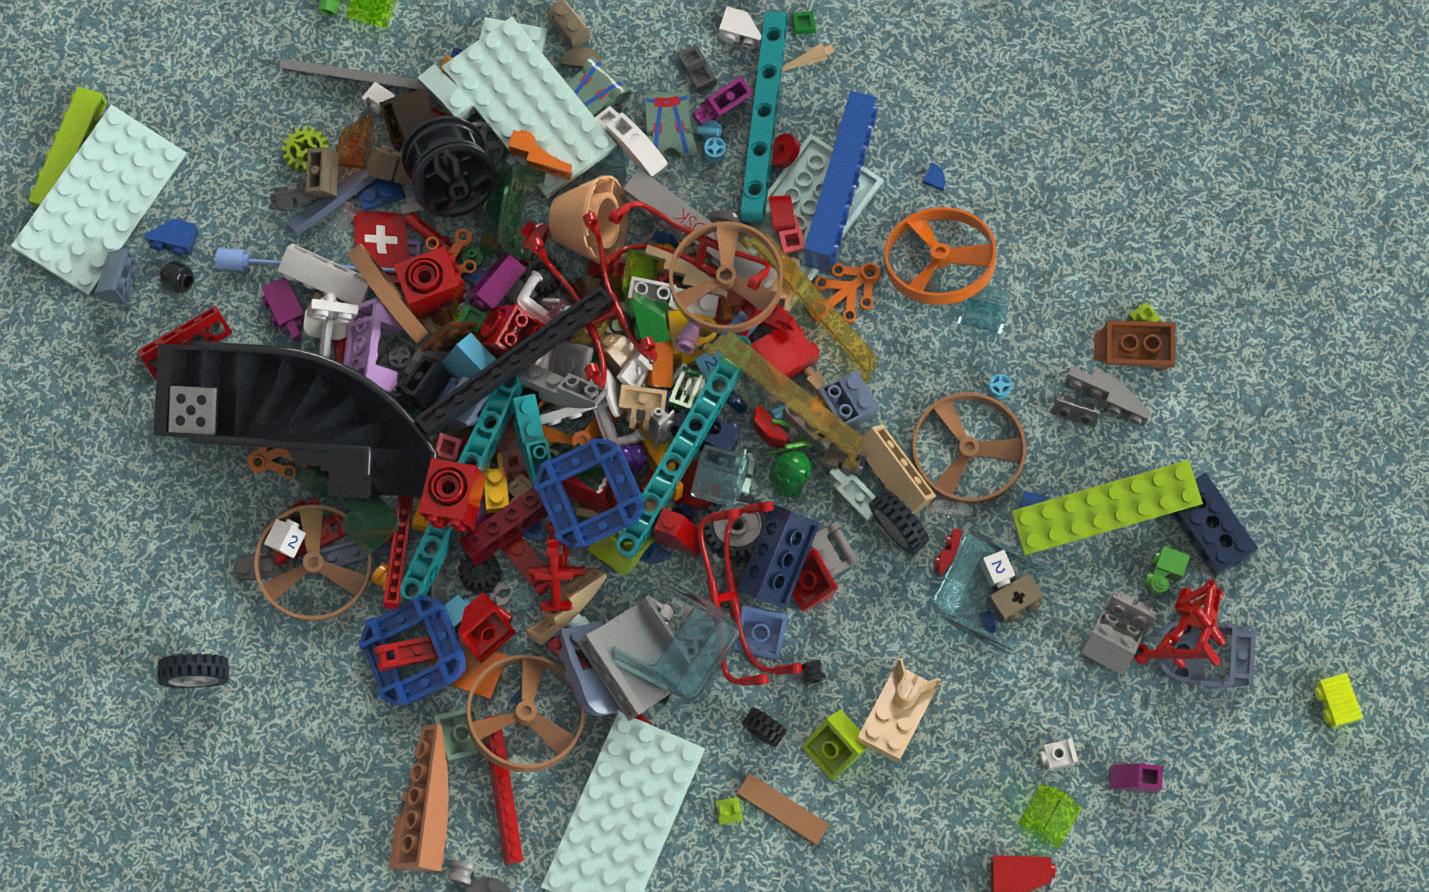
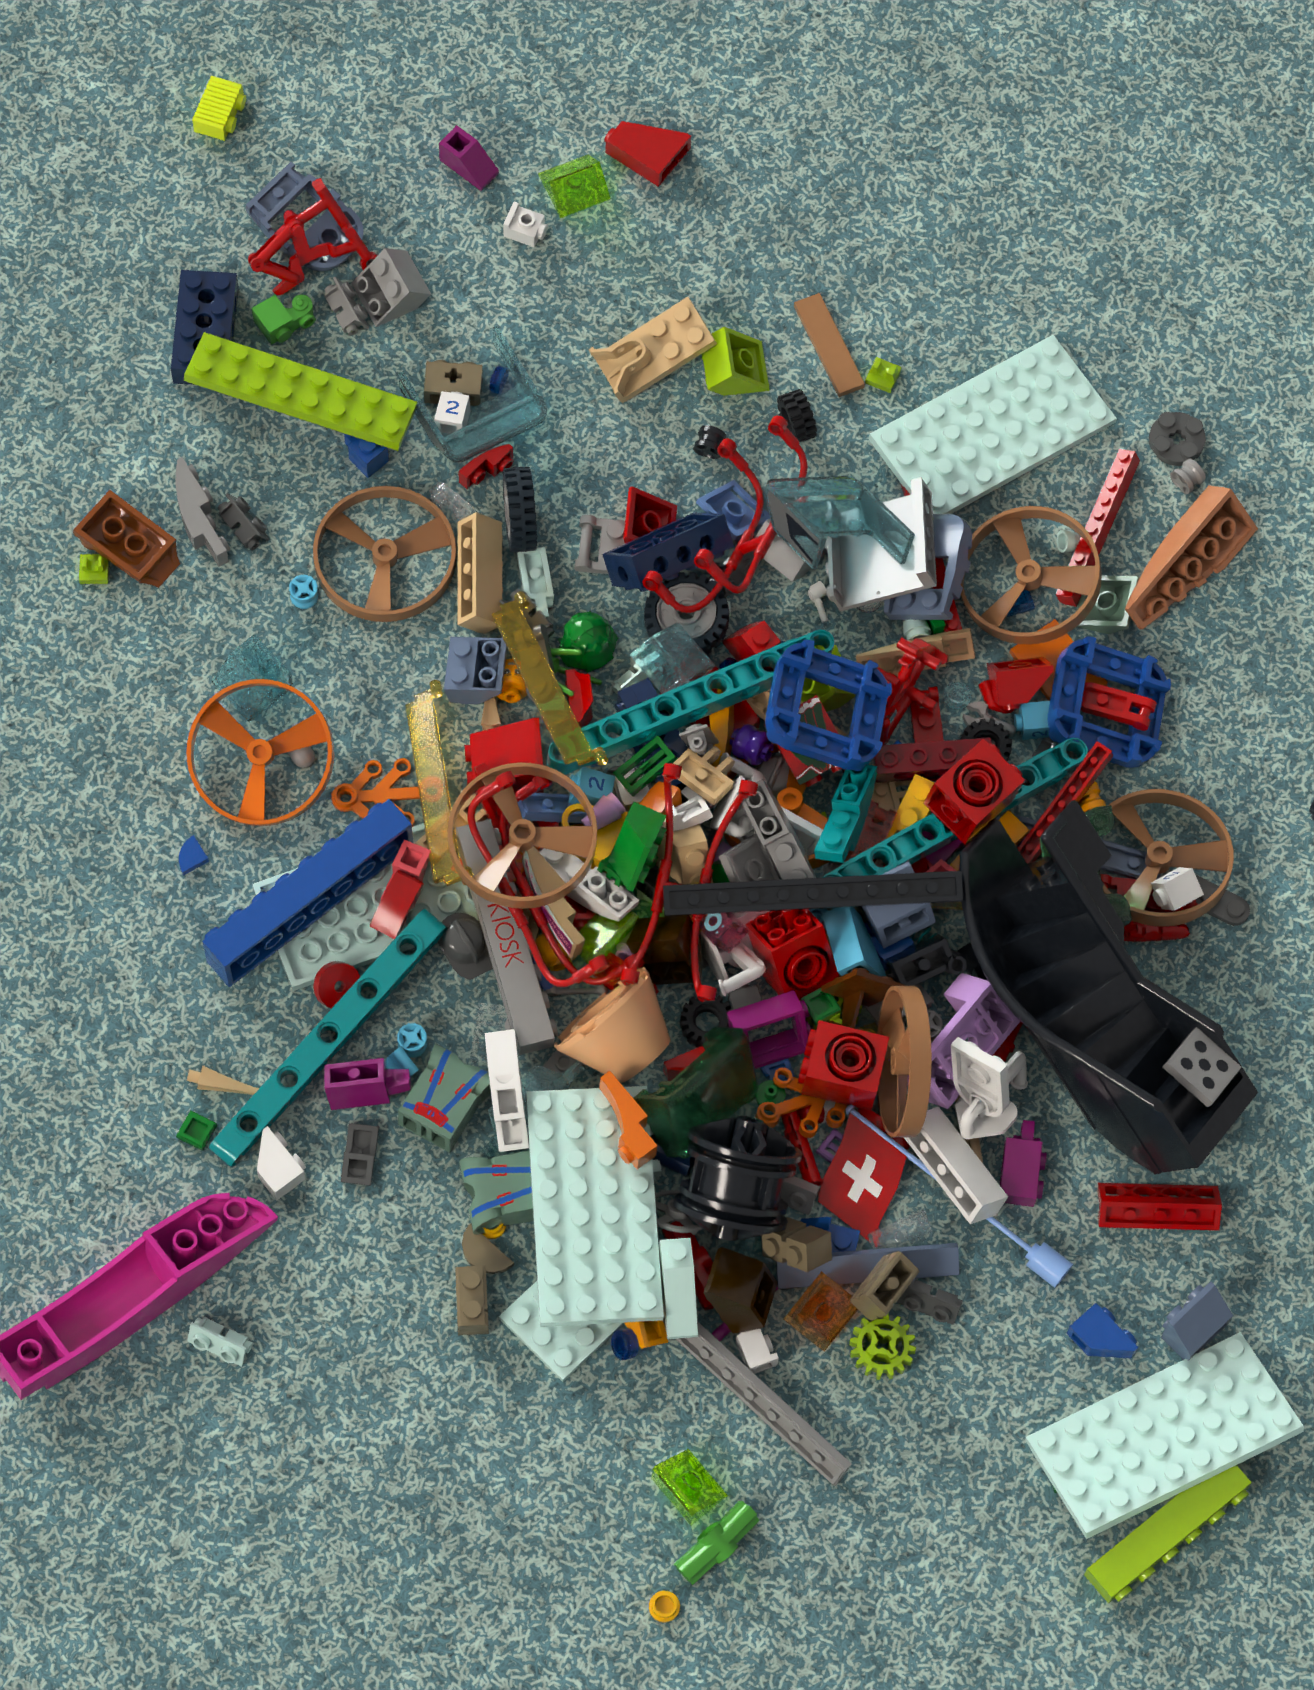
camera: 150 degrees left, 5 degrees down
(176, 277) = (1125, 1284): black head -> none

